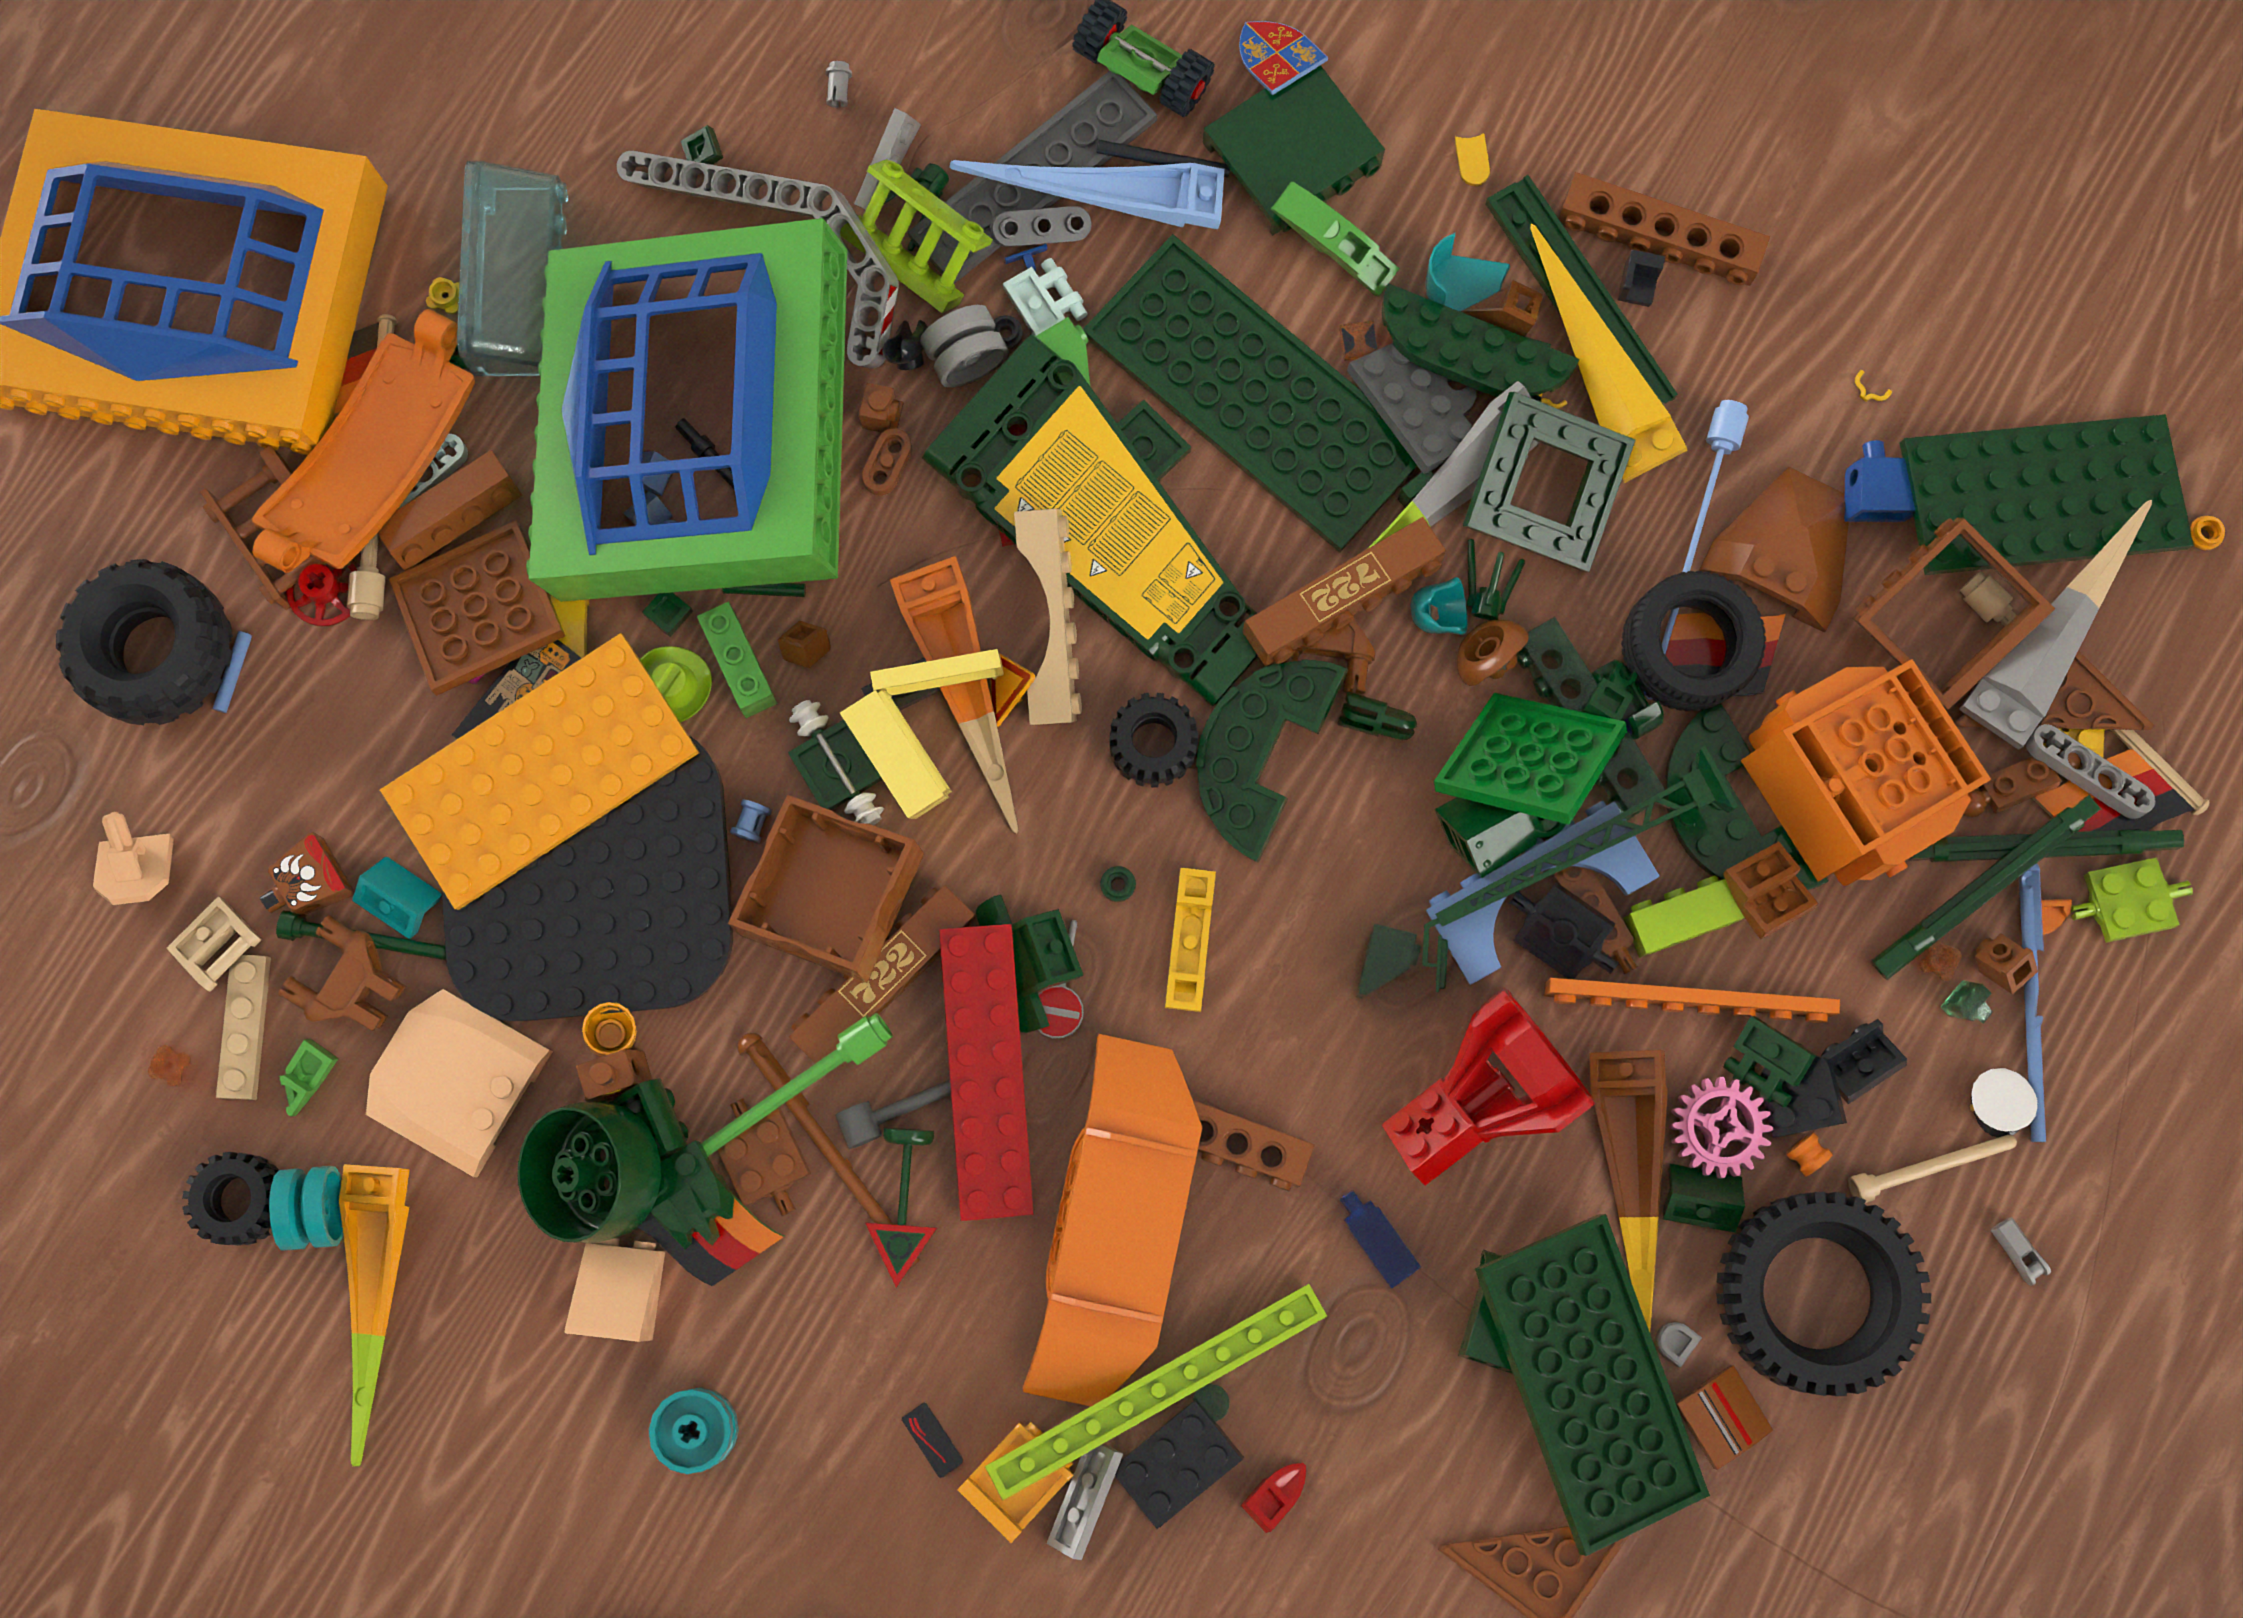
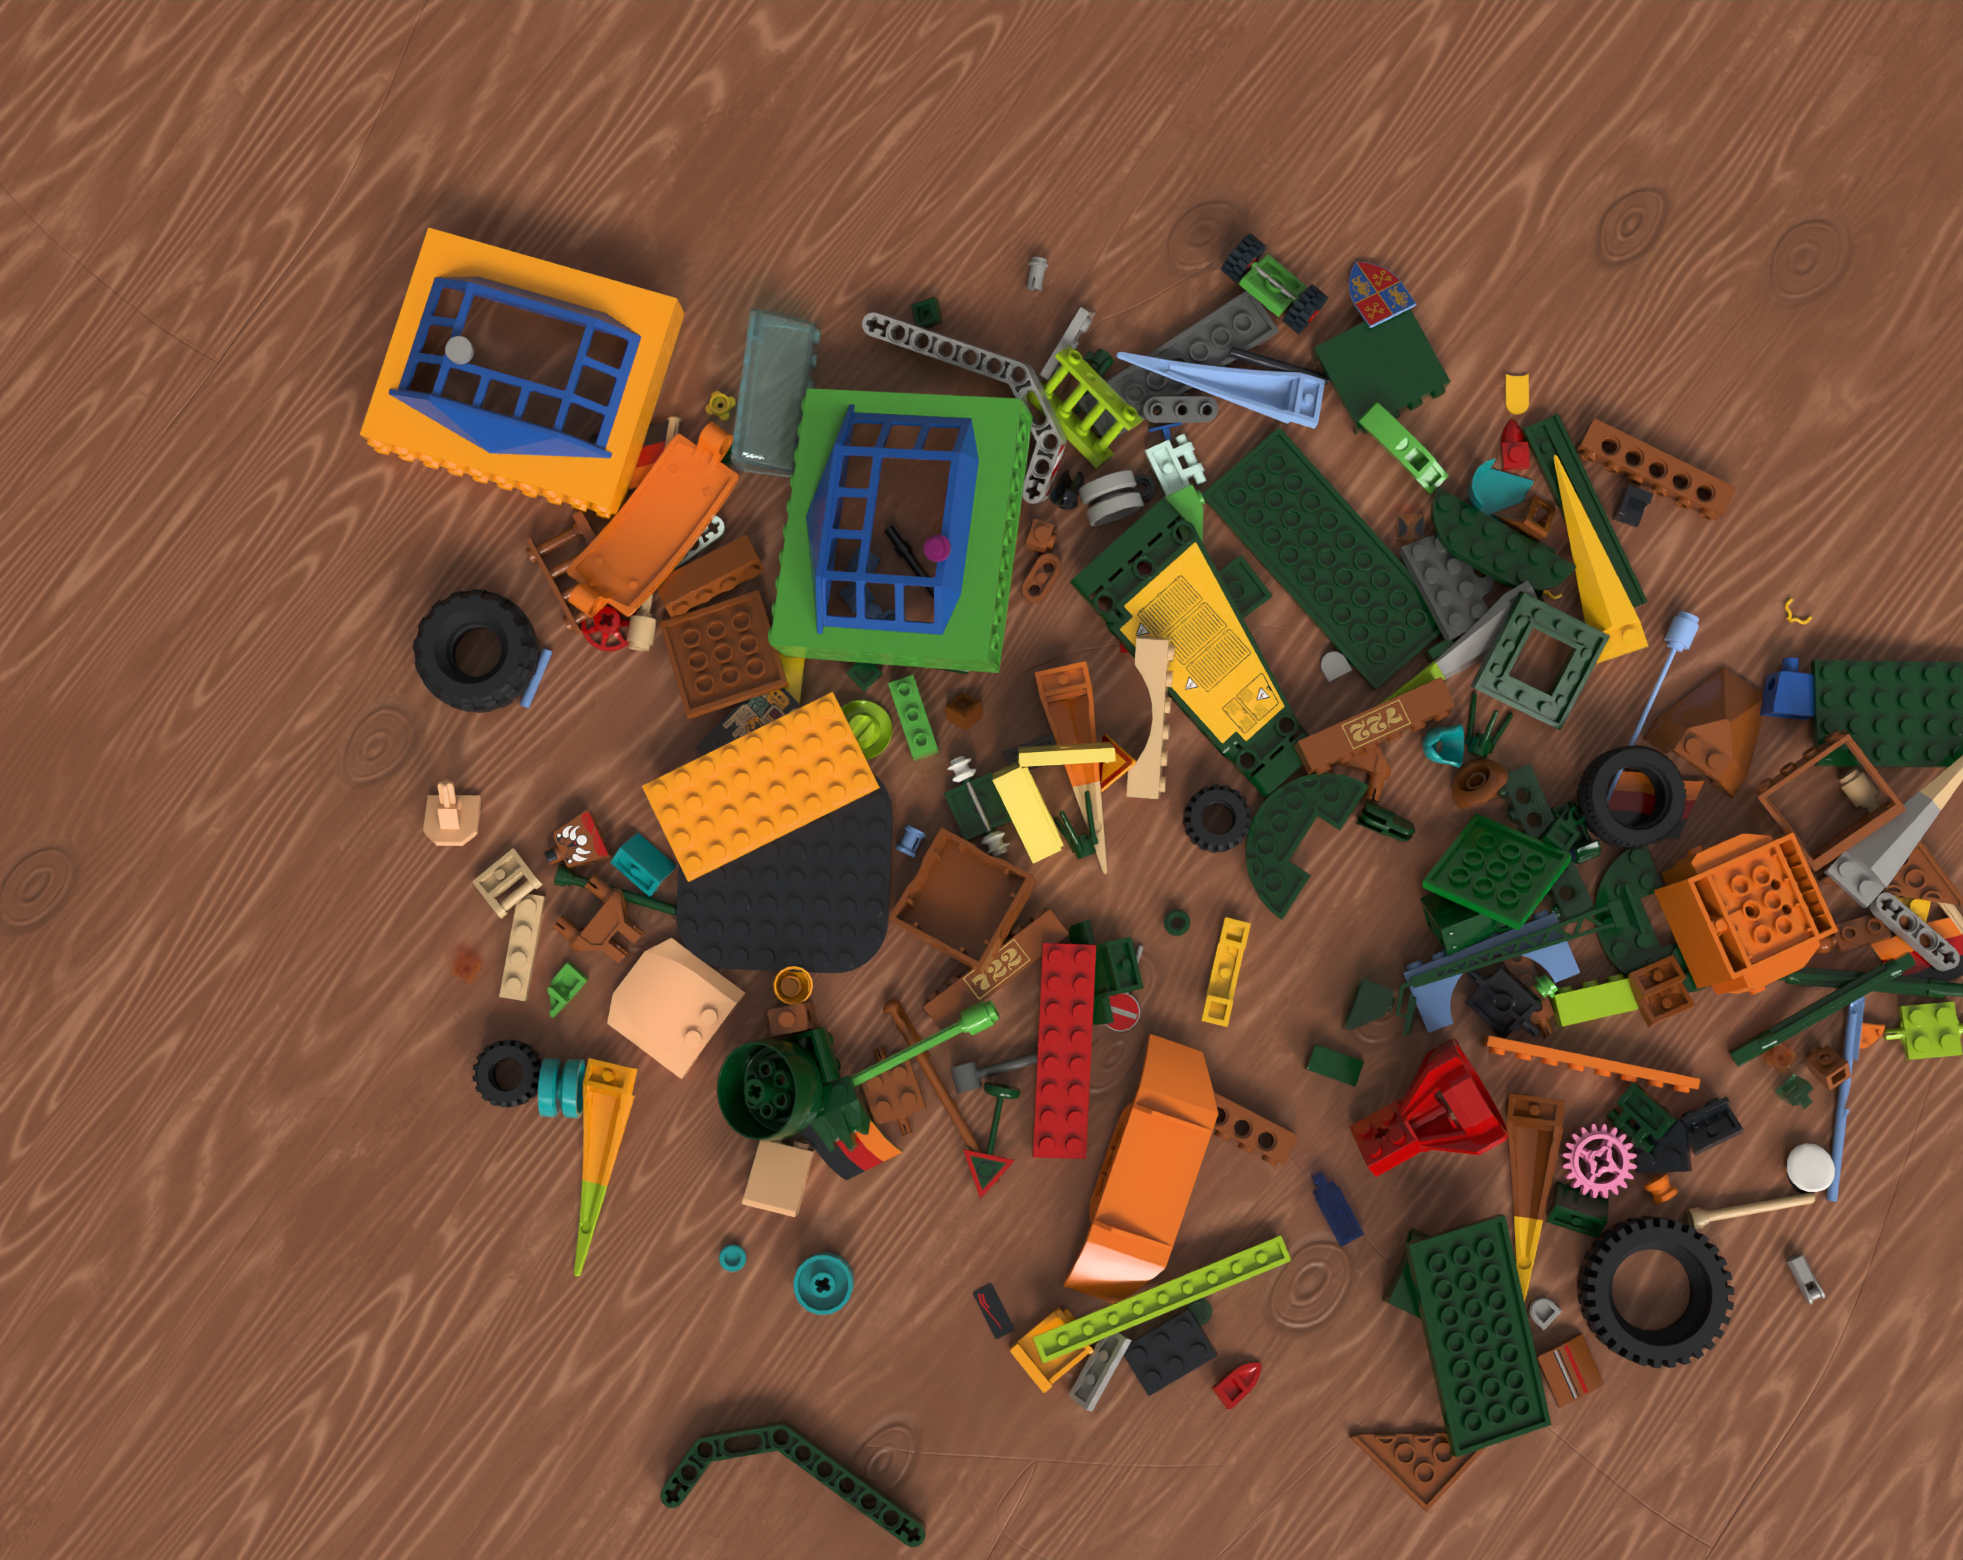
camera: 10 degrees right, 5 degrees up
(79, 249) = (459, 350): none -> light grey tile
(567, 1412) = (732, 1257): none -> teal tile
(729, 415) = (937, 548): none -> magenta plate
(979, 796) = (1081, 844): none -> dark green plant
(1283, 527) = (1334, 666): none -> light grey tile
(1351, 1046) = (1334, 1065): none -> dark green slope
(1478, 227) = (1514, 448): none -> red plate
(1616, 903) = (1545, 986): none -> bright green plate

